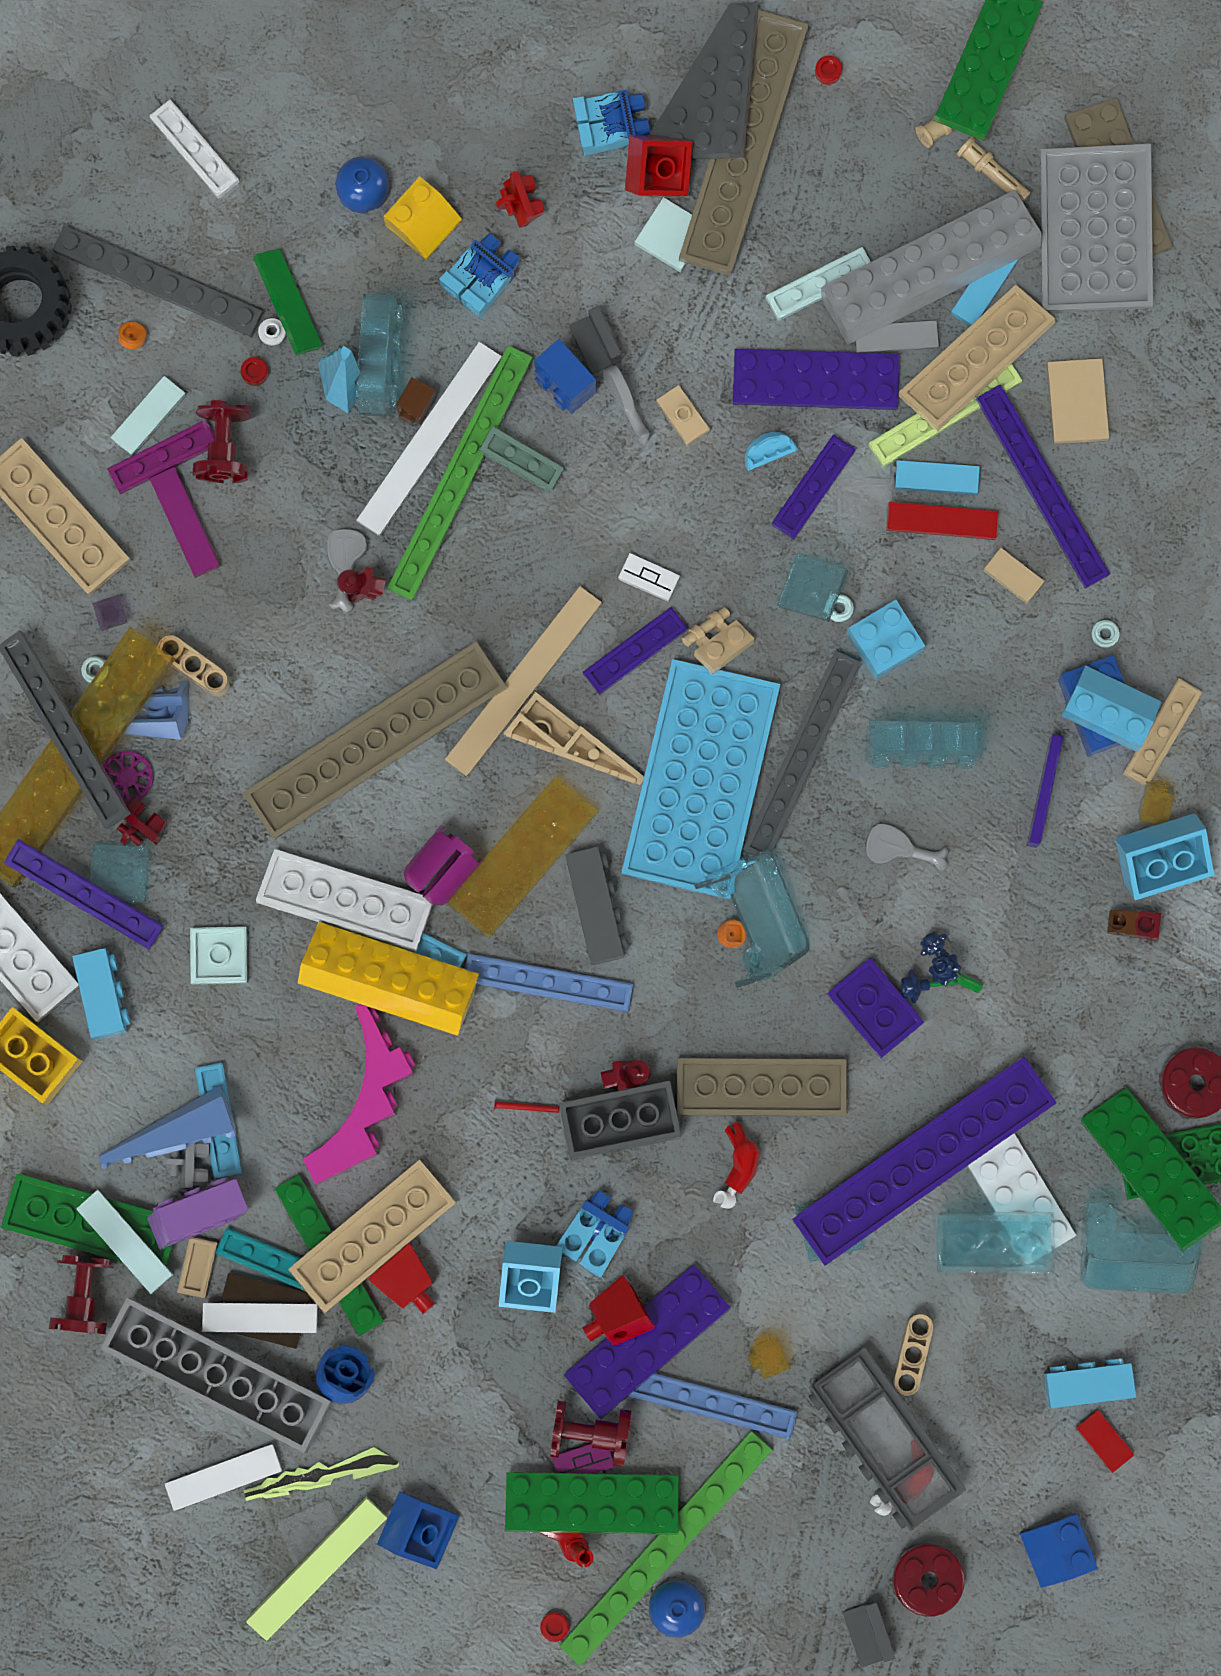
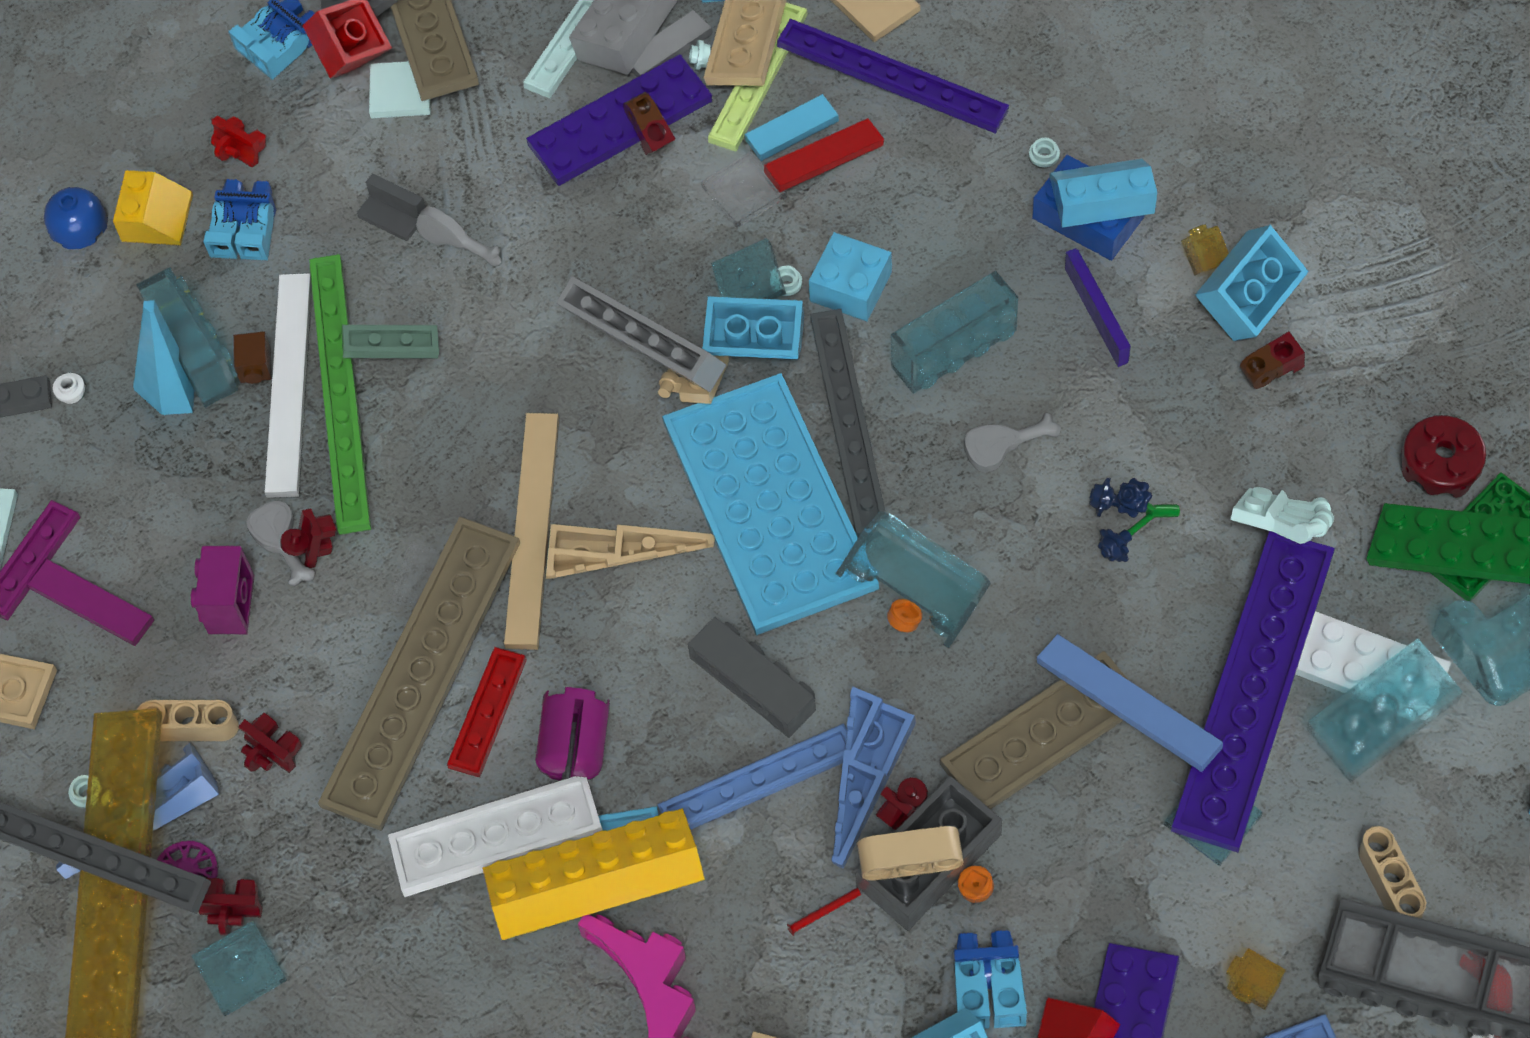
camera: 30 degrees left, 20 degrees down
(83, 894) = (212, 1006): dark purple tile -> none
(110, 612) = (66, 728): clear purple plate -> none
(218, 955) = (400, 978): light aqua tile -> none
(221, 453) = (91, 520): dark red piece -> none
(242, 735) = (258, 735): none -> dark red hips
(254, 371) = (74, 432): red tile -> none
(277, 584) = (223, 589): none -> magenta brick
(287, 301) = (67, 353): green tile -> none
(400, 801) = (486, 712): none -> red tile
(522, 857) = (646, 682): clear yellow plate -> none
(564, 377) = (382, 246): blue brick -> none
(600, 1119) = (910, 853): none -> tan beam
(635, 651) = (621, 437): dark purple tile -> none
(637, 1161) = (975, 884): none -> orange tile
(639, 1015) = (871, 750): none -> medium blue wedge
(649, 577) = (587, 367): white tile -> none
(682, 415) = (518, 219): tan plate -> none
(697, 588) = (641, 334): none -> light grey brick
(744, 1166) = (1086, 817): red arm -> none
(768, 448) = (618, 196): medium azure plate -> none
(781, 639) = (753, 327): none -> medium azure slope
(813, 487) = (685, 203): dark purple tile -> none
(828, 406) = (648, 123): none -> leg
(830, 1112) = (1130, 703): none -> medium blue tile
(875, 1008) = (1094, 590): dark purple plate -> none
(912, 366) = (699, 55): none -> light aqua plate
(1013, 575) = (924, 160): tan tile -> none
(1044, 1047) = (1284, 516): none -> light aqua plate
(1163, 732) = (1166, 222): tan tile -> none

